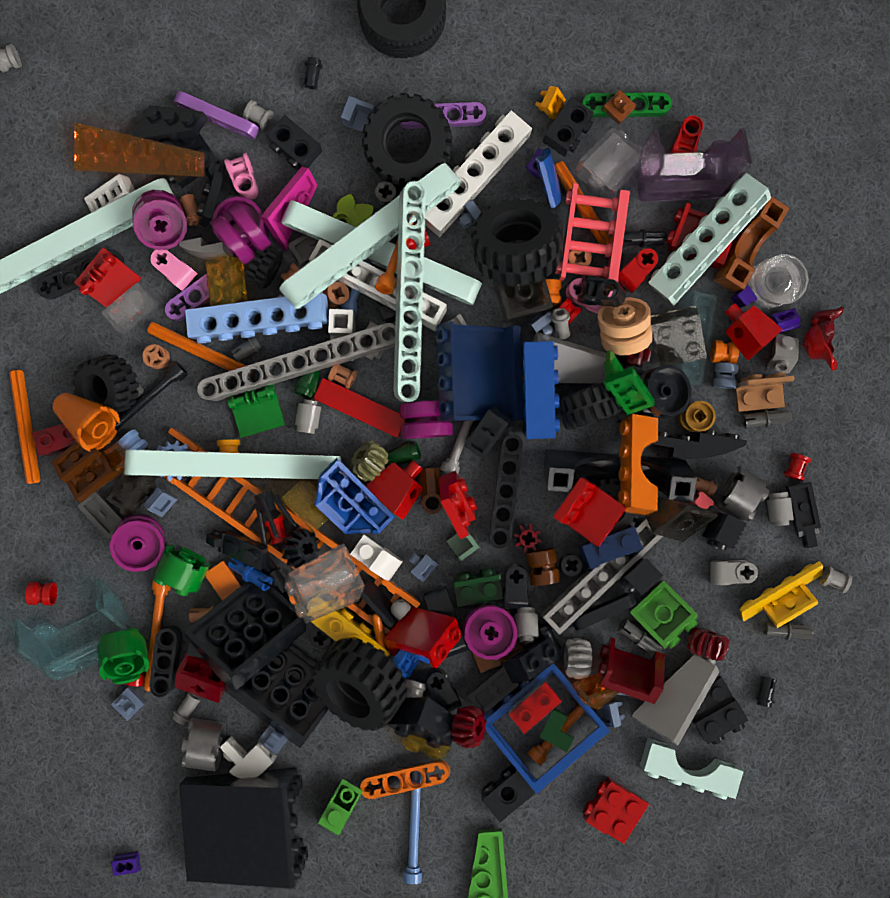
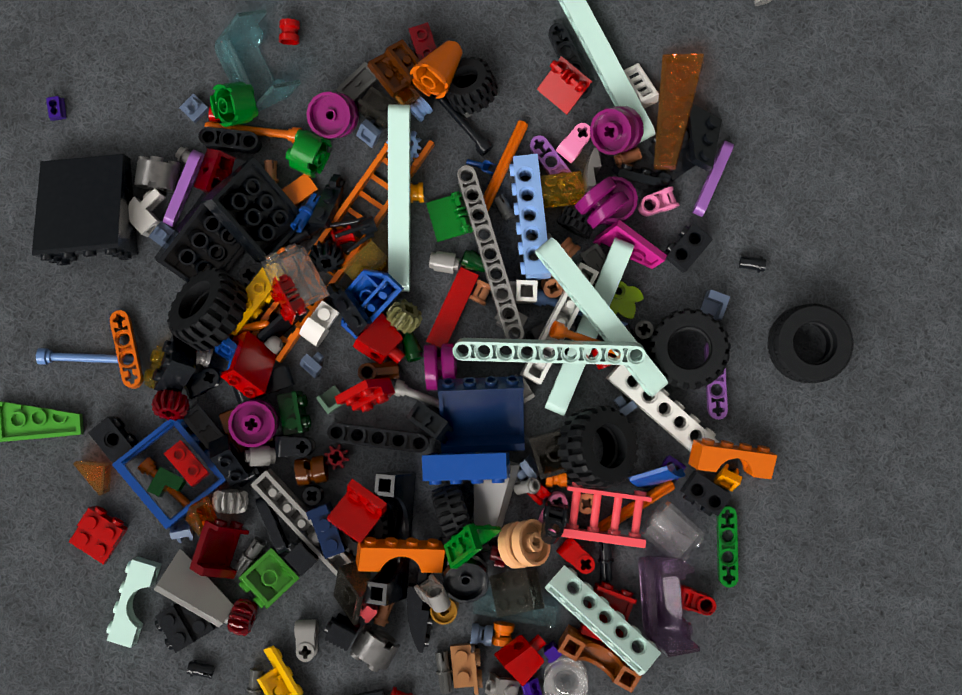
camera: 90 degrees right, 0 degrees up
(24, 426) = (435, 14): orange axle -> none
(130, 308) = (539, 105): clear brick -> none
(151, 355) = (498, 124): nougat wheel -> none
(198, 374) = (483, 165): none -> blue hand
(219, 714) = (183, 188): none -> medium lavender beam
(258, 115) = (713, 215): light grey bush -> none
(339, 807) = (102, 292): bright green slope -> none
(342, 601) = (280, 295): none -> red hinge
(360, 522) = (349, 308): none -> black hinge
(527, 117) = (709, 456): none -> orange arch
(547, 812) = (96, 473): none -> clear orange slope
(619, 107) = (723, 539): dark orange tile -> none
(682, 426) = (433, 594): none -> light grey piece
(780, 508) = (362, 683): light grey brick -> none

